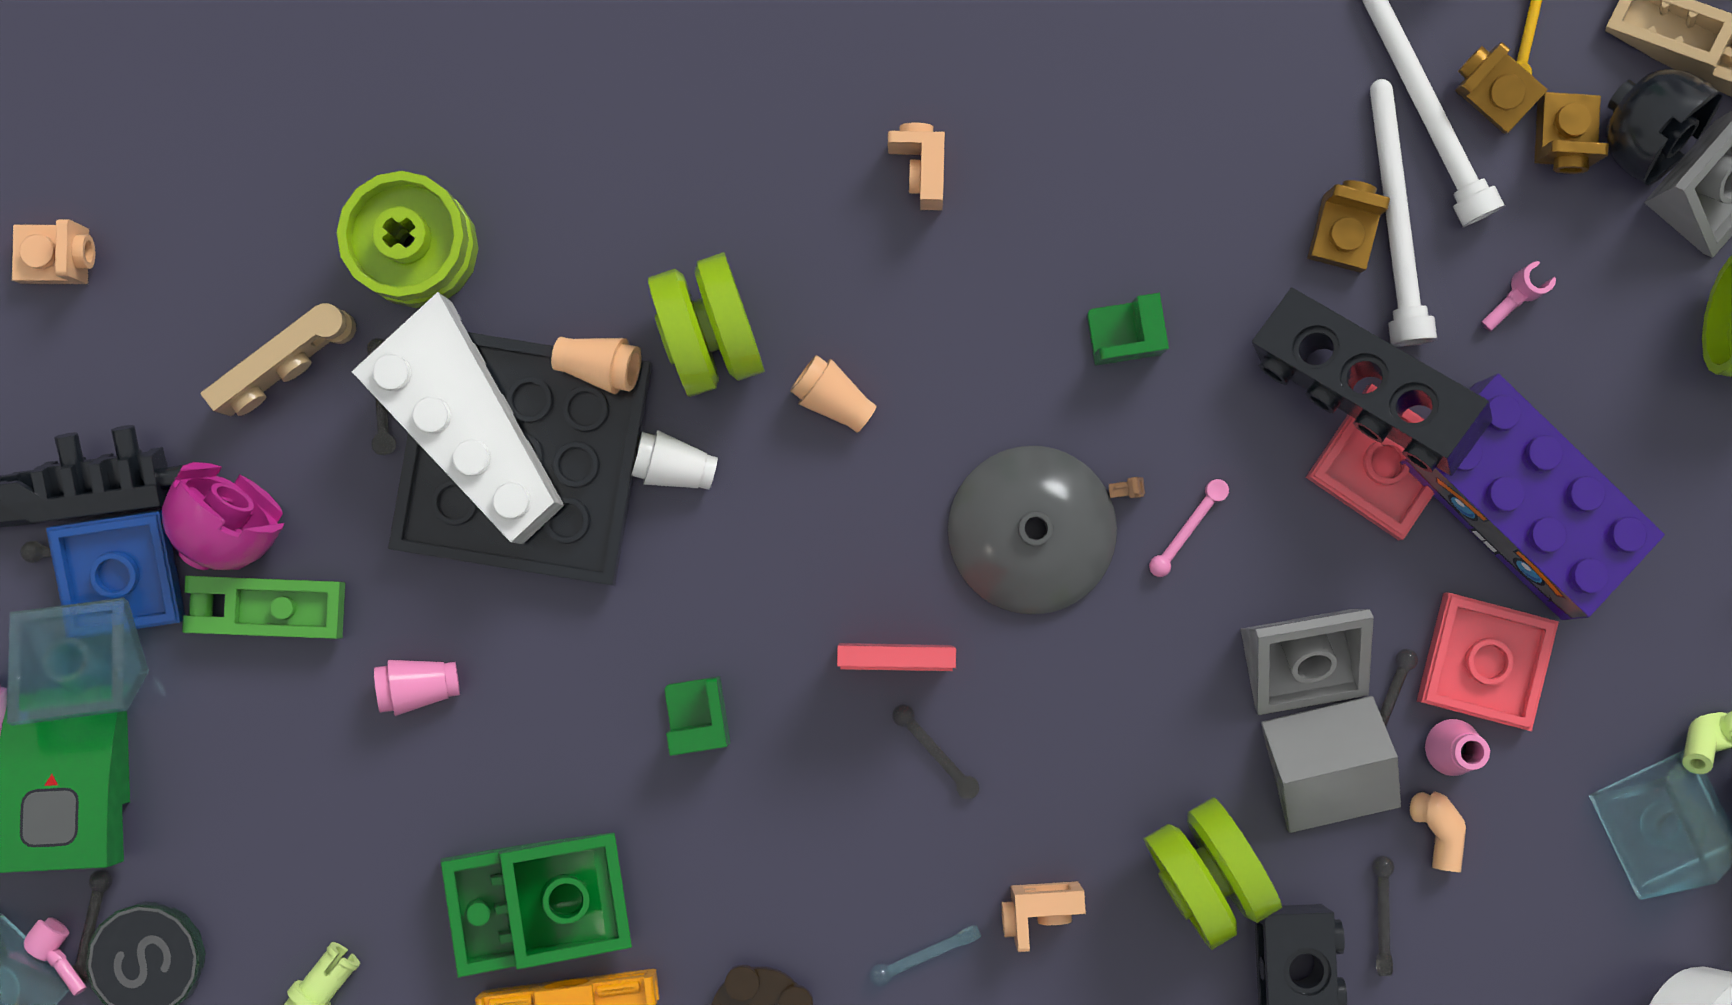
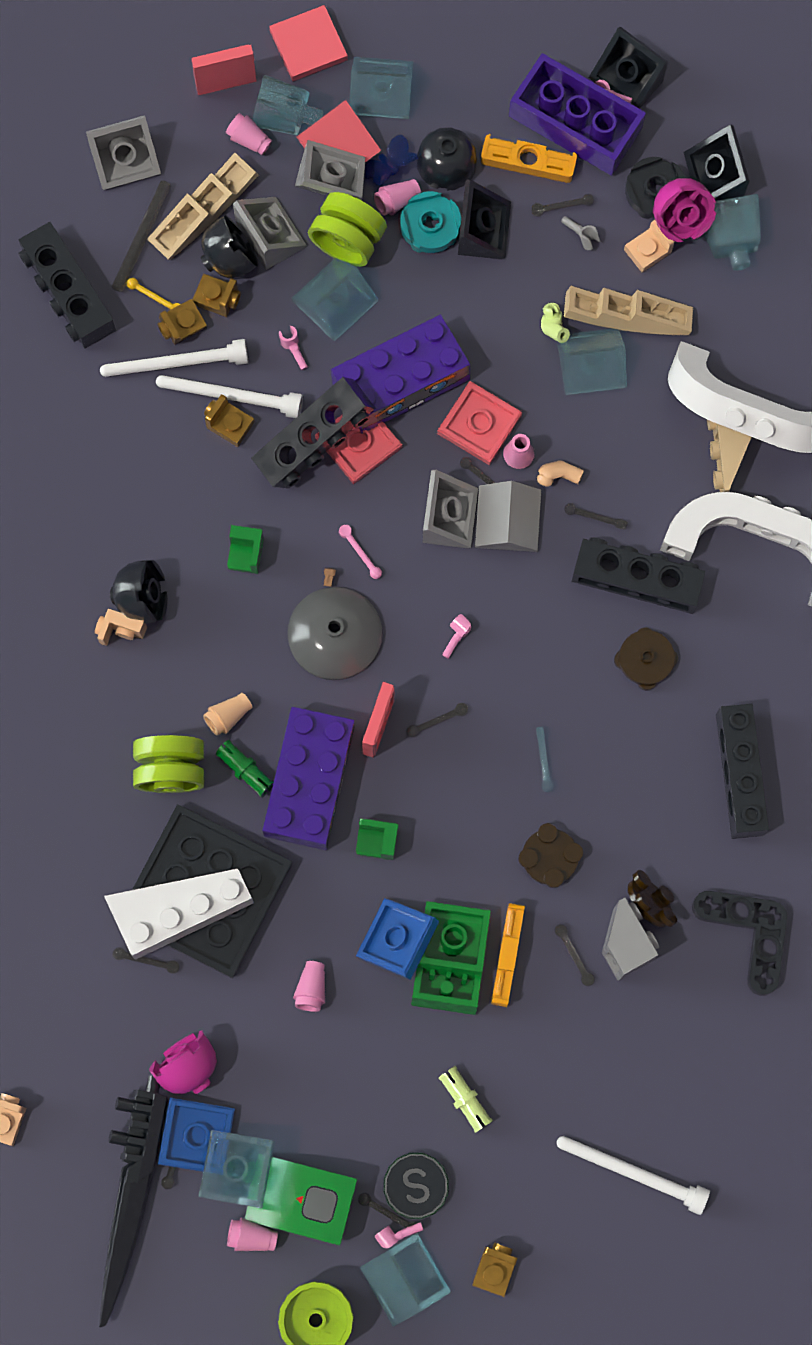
camera: 75 degrees left, 10 degrees down
(266, 607) = (241, 1058): bright green plate -> none
(278, 359) = (108, 1004): tan plate -> none
(381, 219) = (53, 899): lime wheel -> none
(534, 805) = (397, 938): none -> blue tile
(599, 361) = (169, 827): light nougat cone -> none
(672, 463) = (236, 809): white cone -> none
(748, 454) = (245, 768): none -> green pin
(760, 568) = (308, 778): none -> dark purple brick
(993, 175) = (138, 591): none -> black cylinder
(1048, 902) = (537, 683): light nougat bracket -> none
(1110, 744) = (462, 627): none -> bright pink hand
(1217, 869) = (543, 592): lime wheel -> none
(1633, 340) = (336, 298): none -> clear light blue slope

